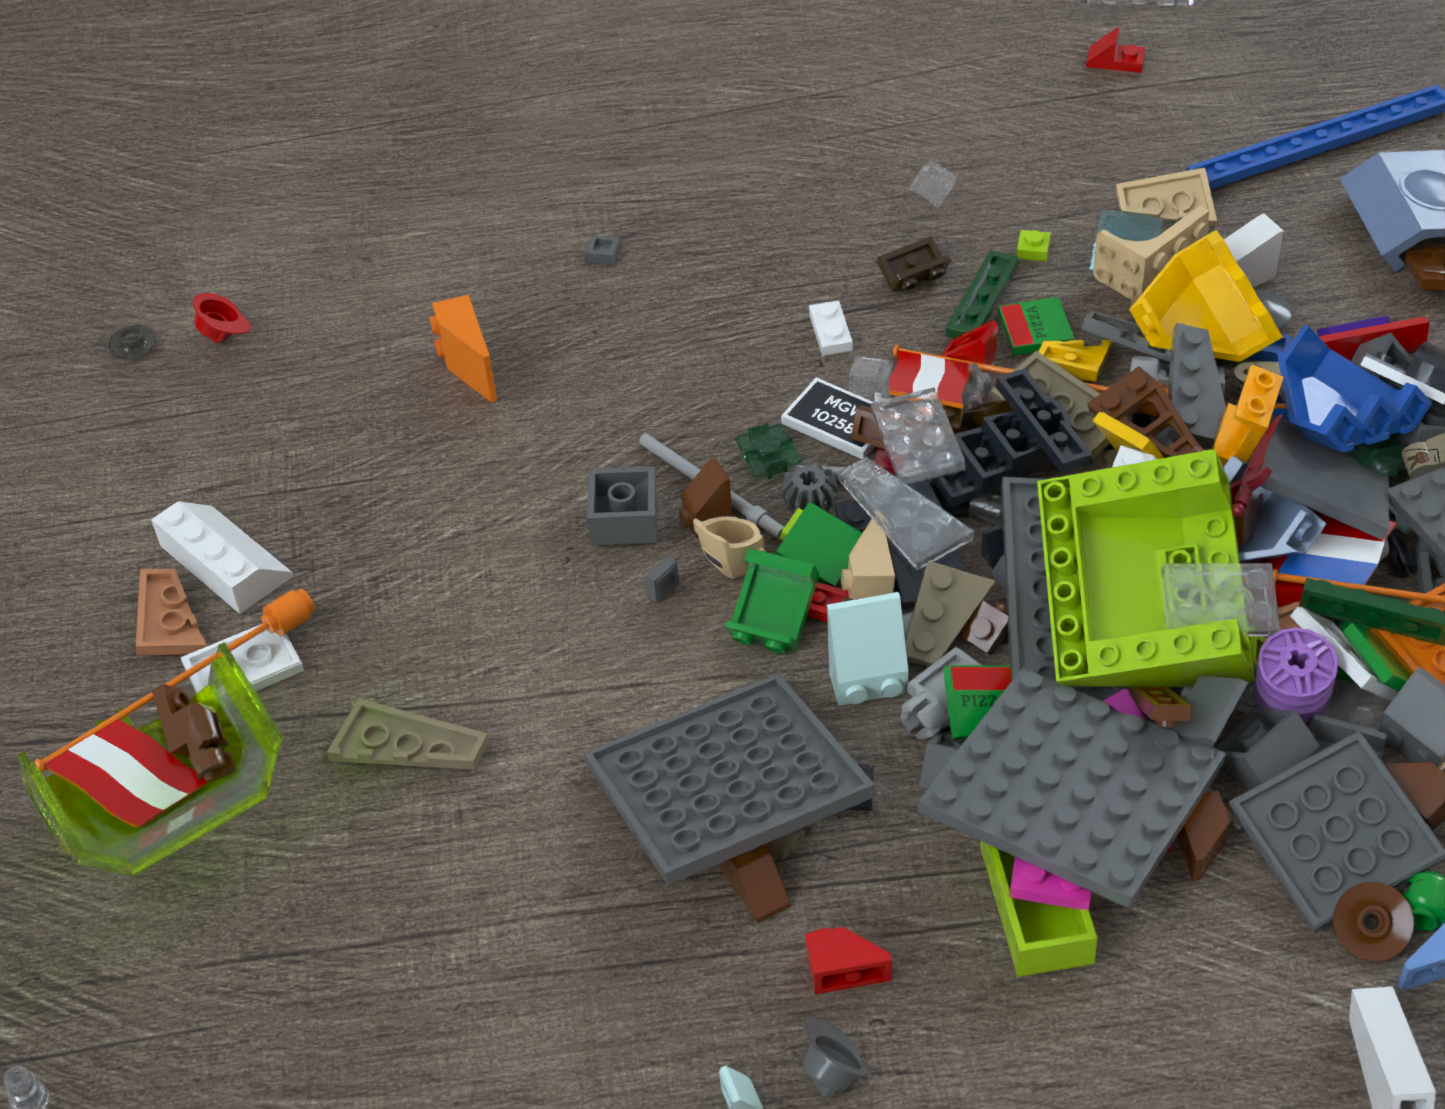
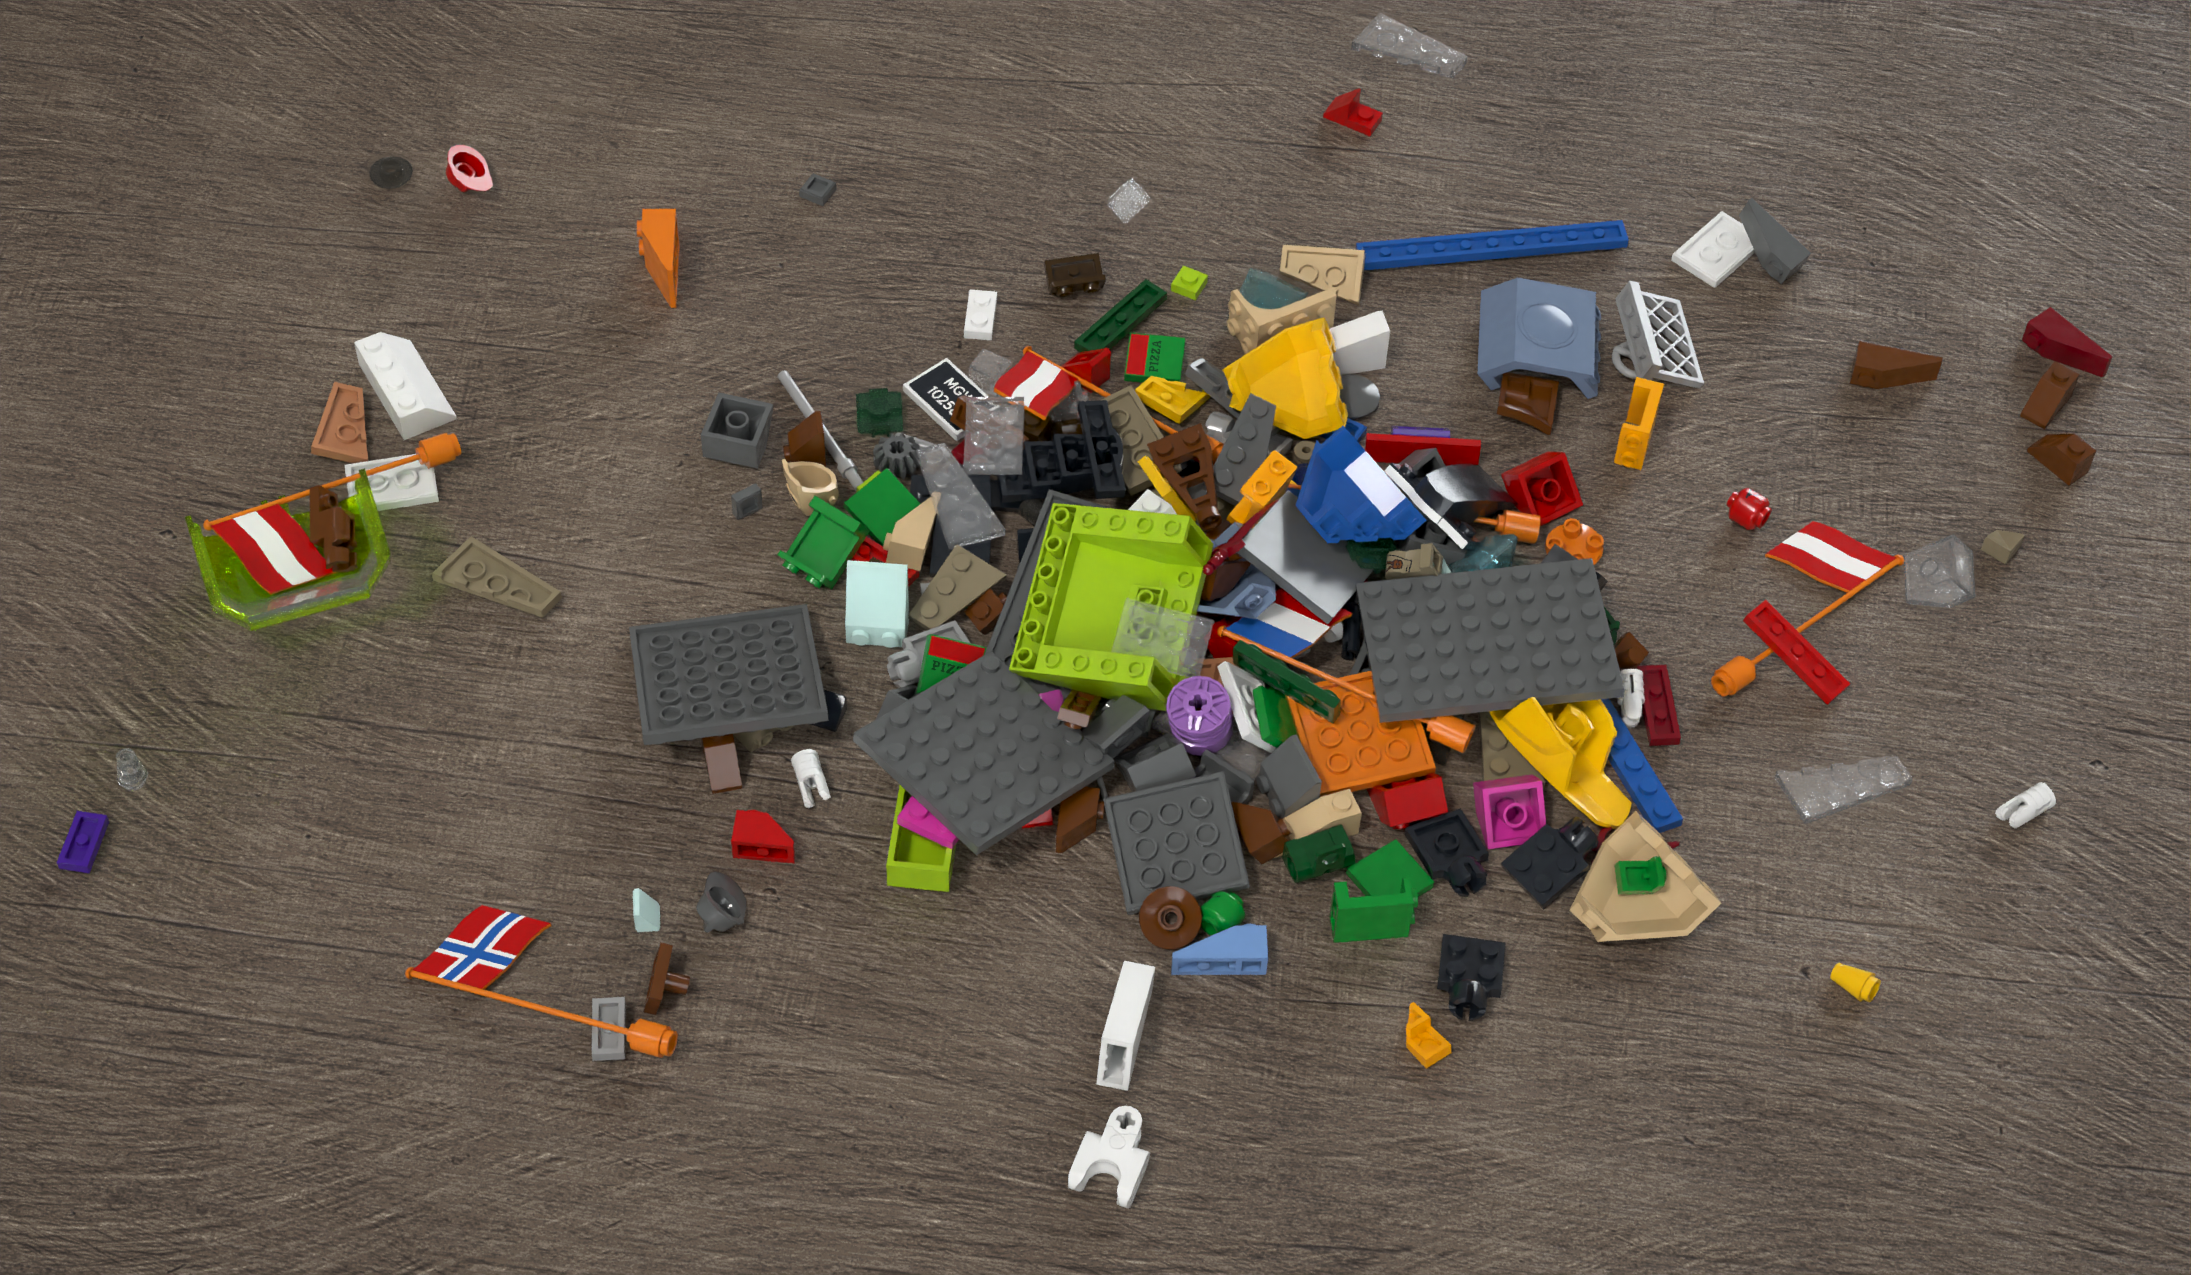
camera: 10 degrees right, 5 degrees up
(868, 869) = (809, 776): none -> white hinge

